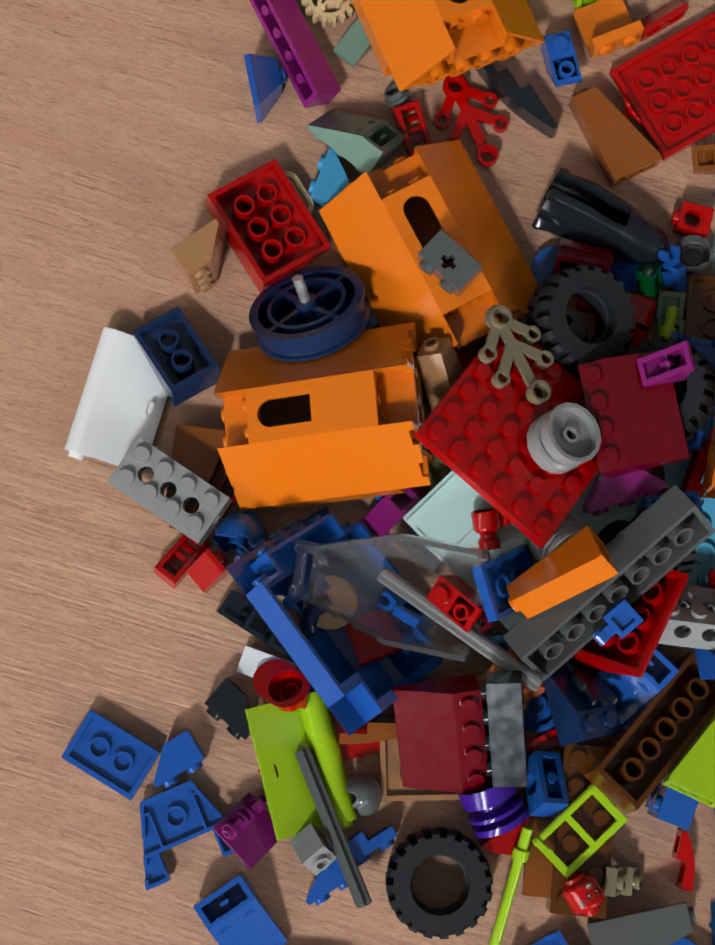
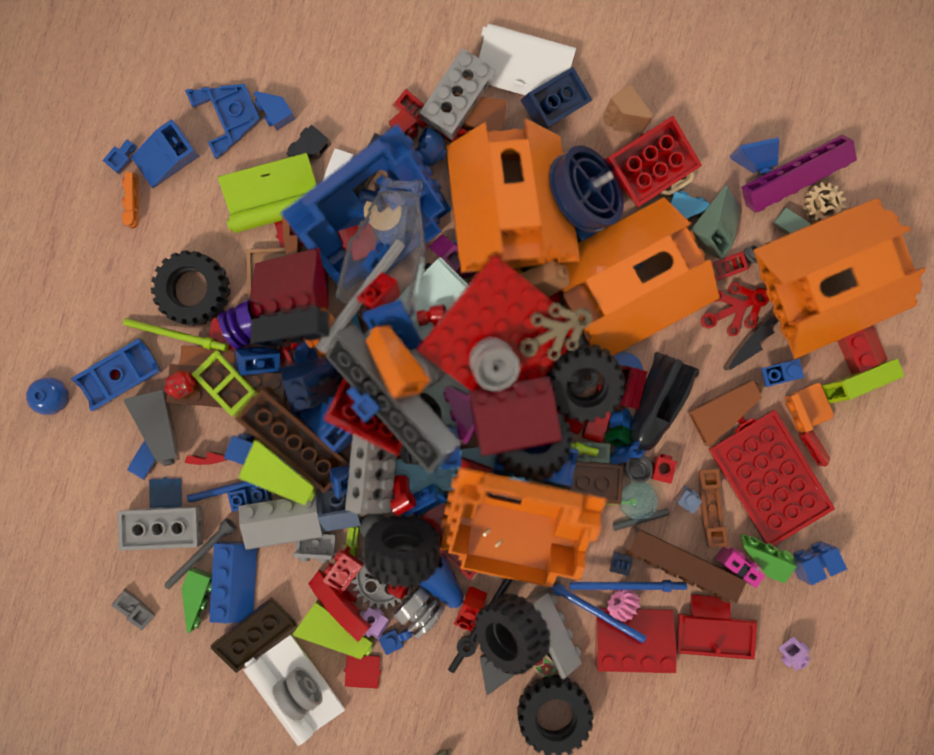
camera: 90 degrees right, 5 degrees up
(111, 754) = (276, 63): blue plate -> none
(248, 829) = (225, 156): magenta hinge -> none
(282, 685) = (319, 171): red piece -> none
(313, 849) = (211, 201): light grey brick -> none
(333, 828) = (226, 214): dark grey axle -> none
(361, 848) = (202, 222): blue slope -> none
(367, 792) = (252, 237): dark grey hair -> none
(445, 249) = (633, 276): dark grey brick -> none
(622, 880) = (192, 415): dark tan slope -> none
(667, 365) = (548, 437): magenta slope -> none

